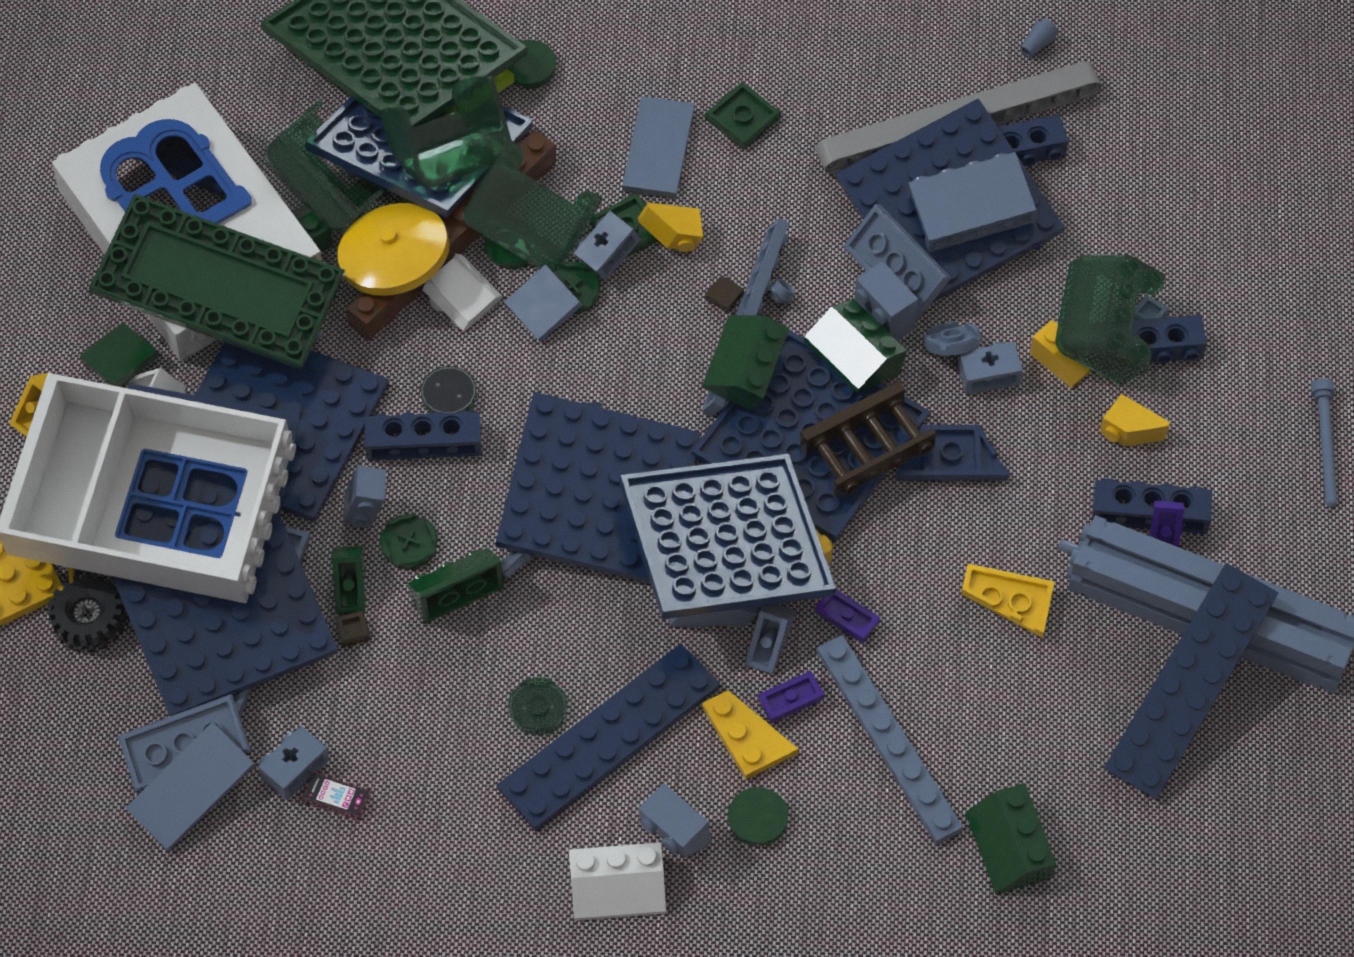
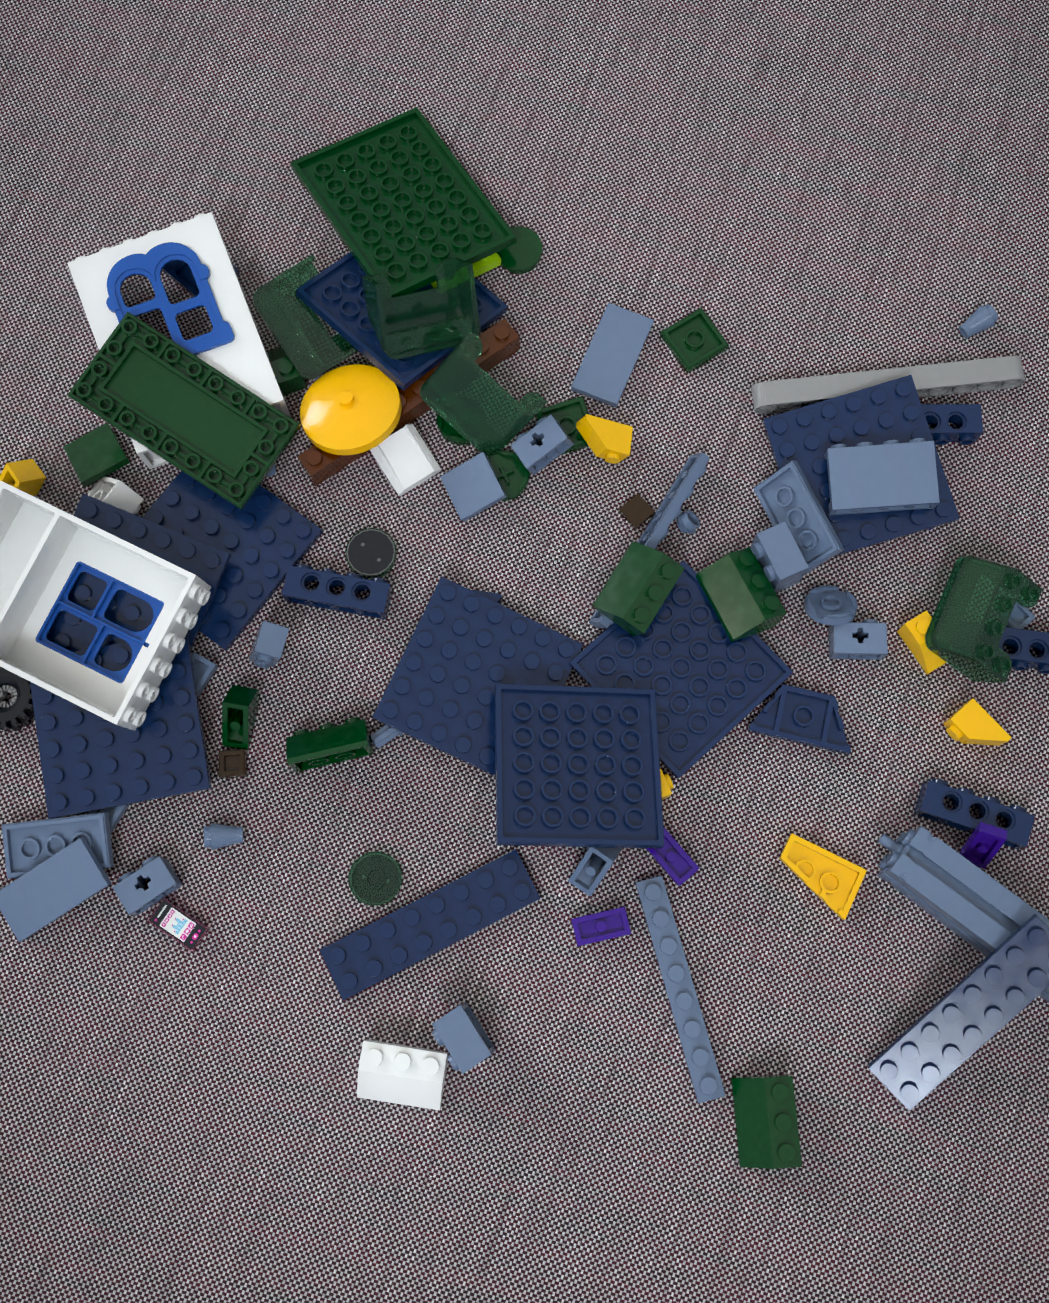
camera: 15 degrees right, 15 degrees up
(359, 698) = (220, 835): none -> sand blue cone
(409, 541) = (302, 690): dark green tile -> none
(746, 735) = (552, 953): yellow wing -> none
(758, 816) = (543, 1037): dark green tile -> none
(866, 413) = (735, 666): dark brown fence -> none

